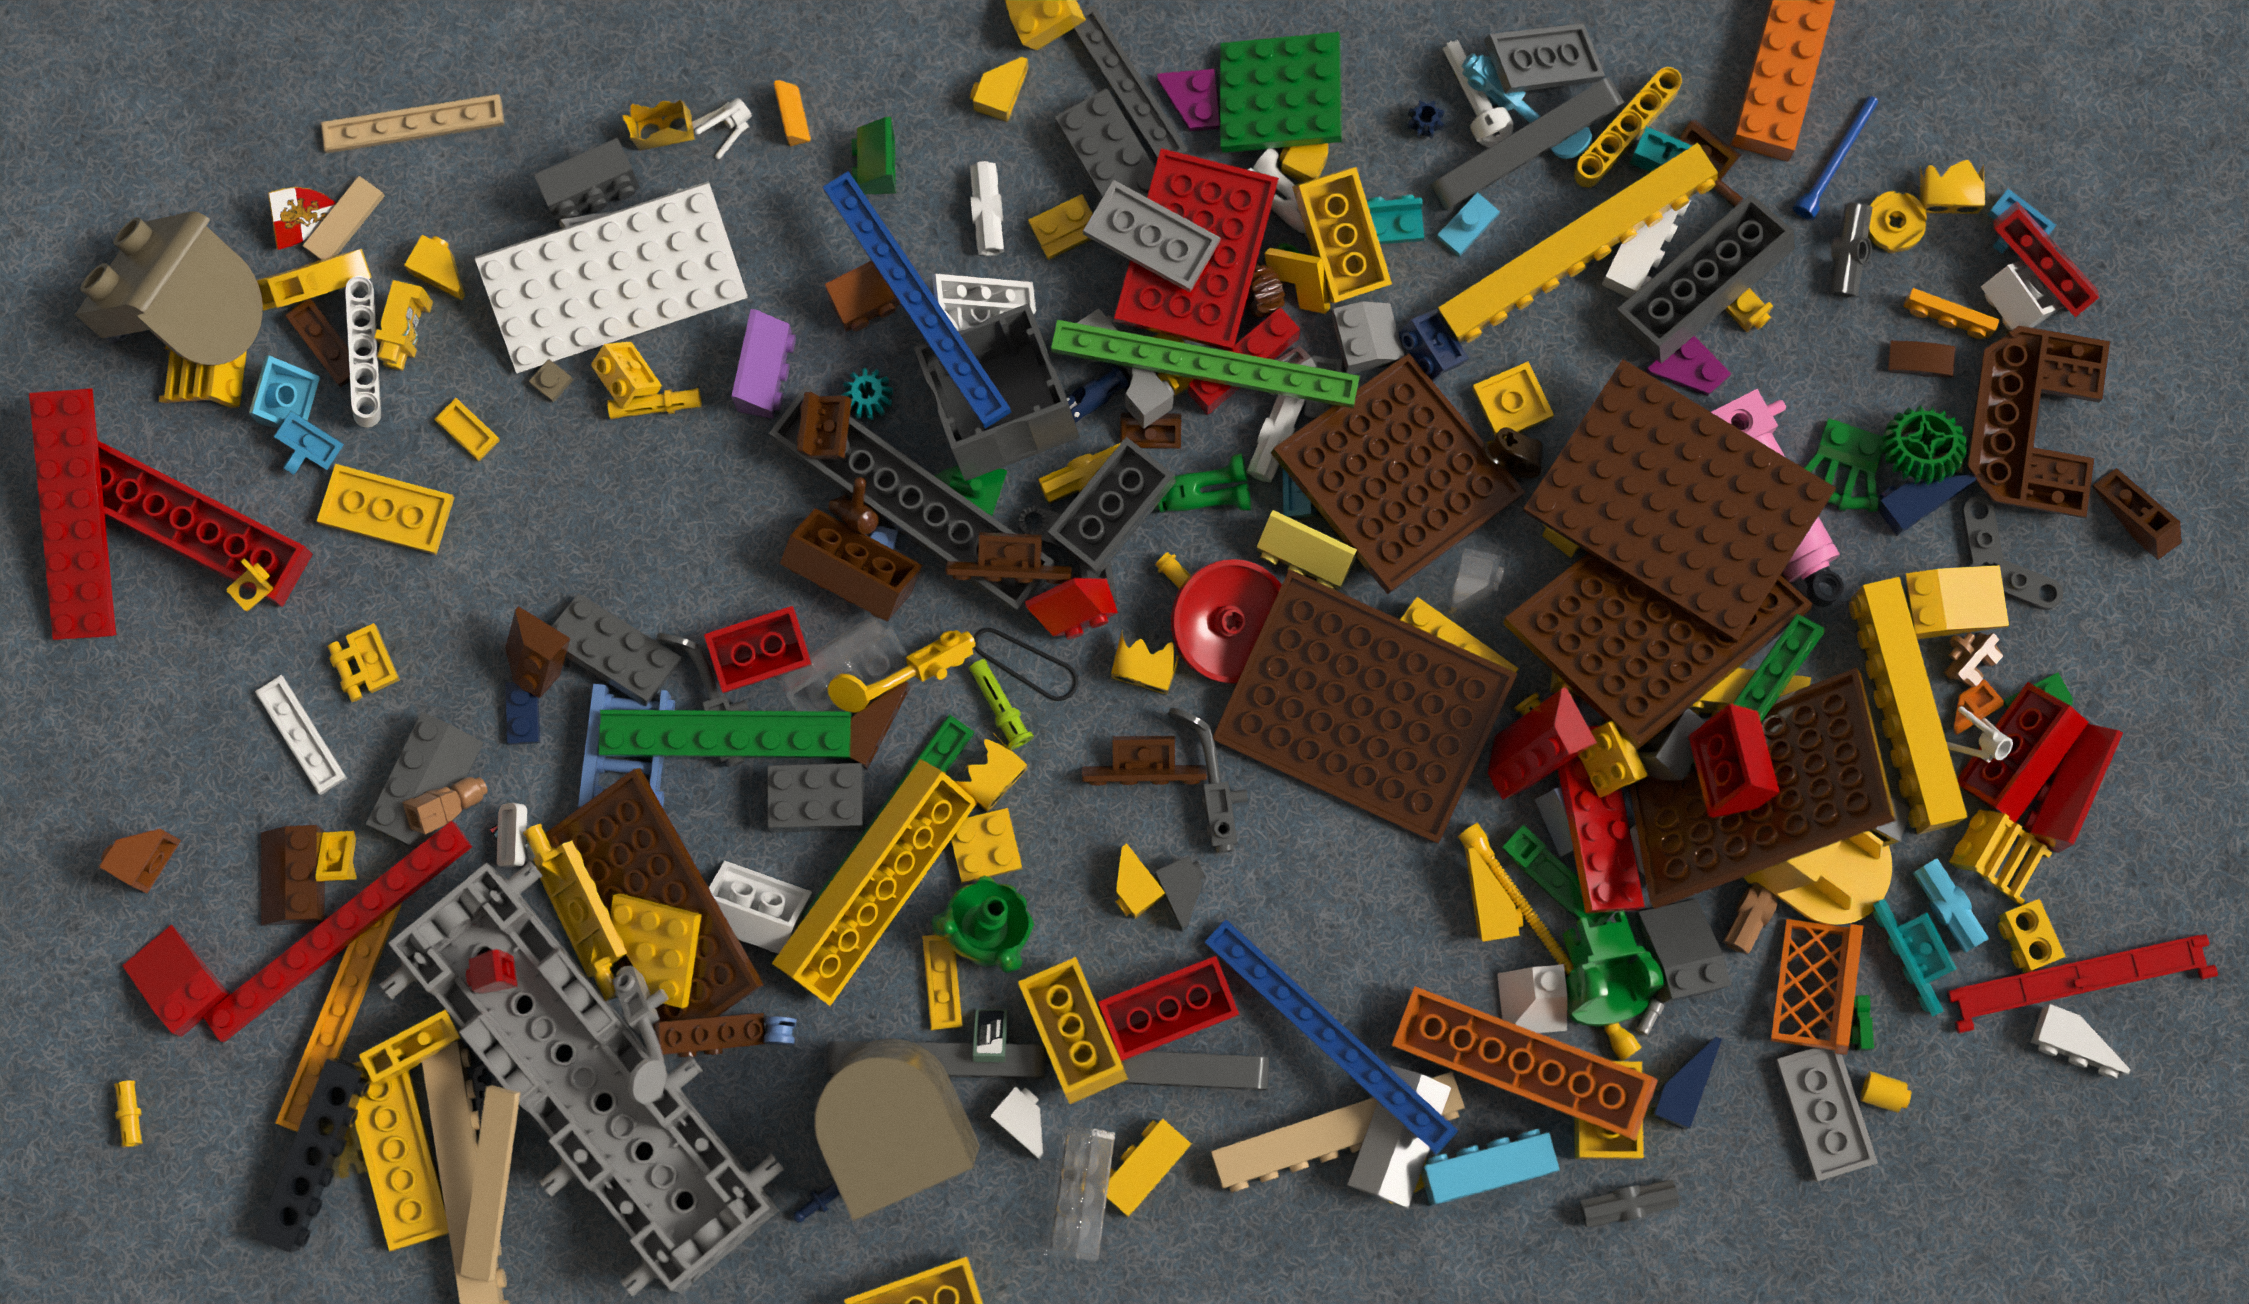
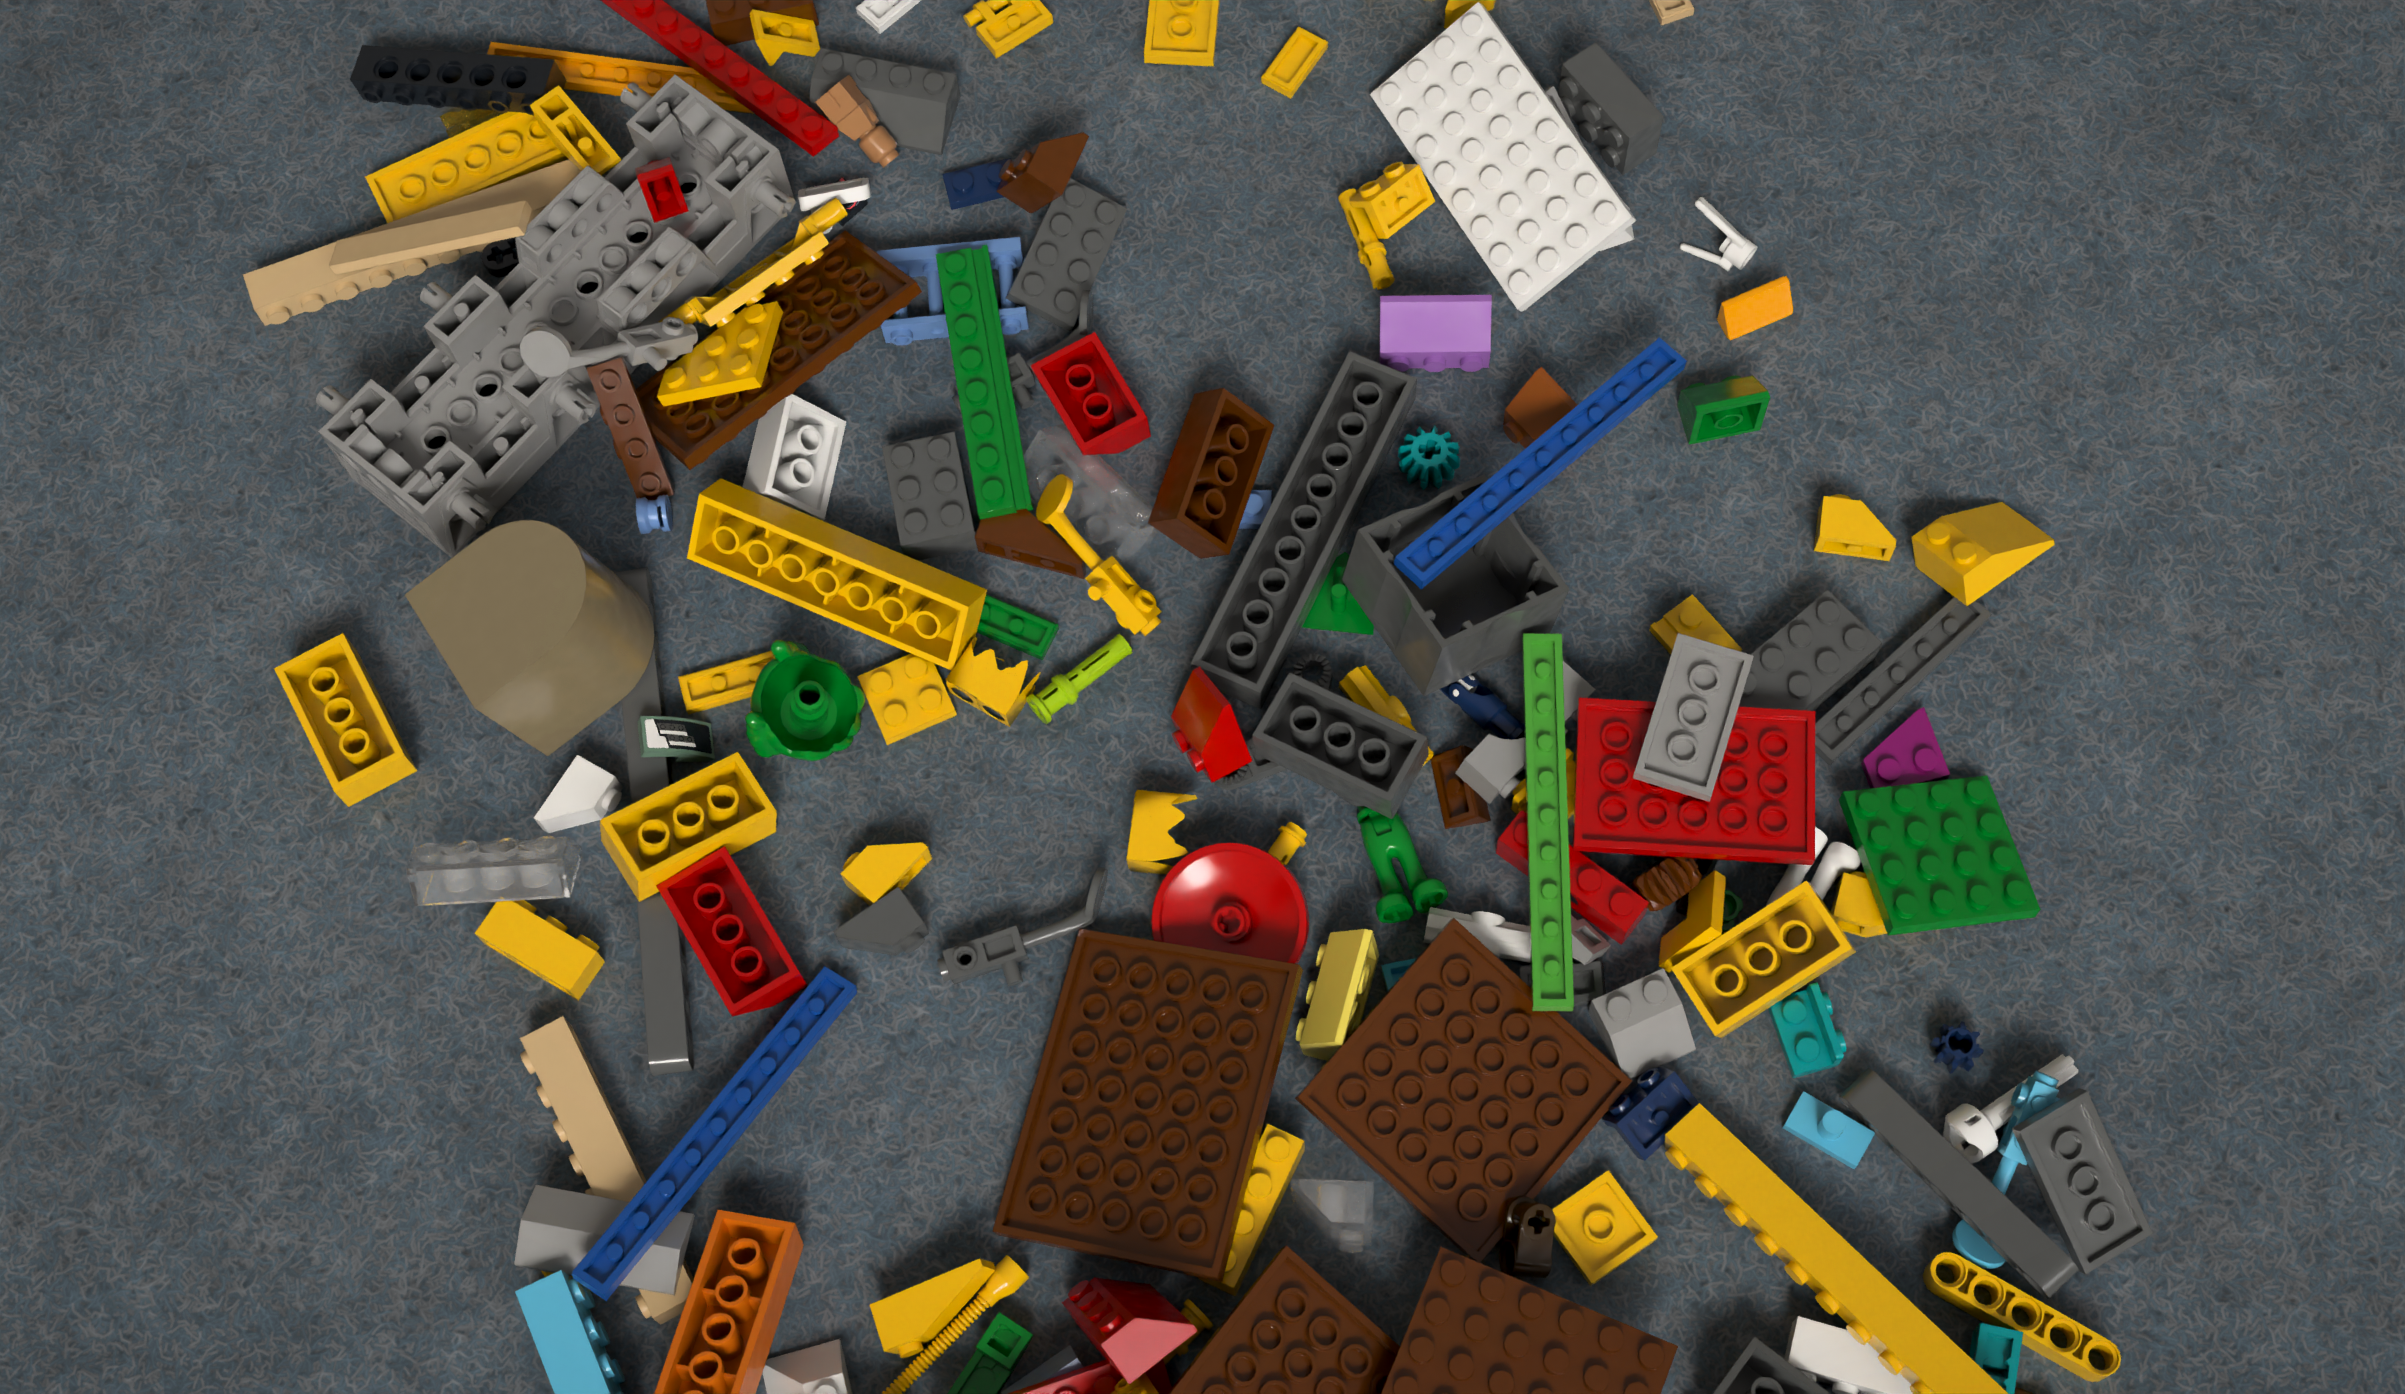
camera: 85 degrees right, 10 degrees down
(551, 380) = (1370, 131): dark tan plate -> none
(666, 135) = (1690, 146): yellow piece -> none
(824, 426) = (1366, 399): reddish brown bracket -> none
(853, 511) = (1272, 468): reddish brown piece -> none
(976, 299) = (1562, 530): white wedge -> none
(986, 208) = (1693, 544): white piece -> none
(1009, 557) = (1247, 637): reddish brown bracket -> none
(1016, 675) = (1155, 709): black piece -> none
(1143, 760) = (1036, 852): reddish brown bracket -> none

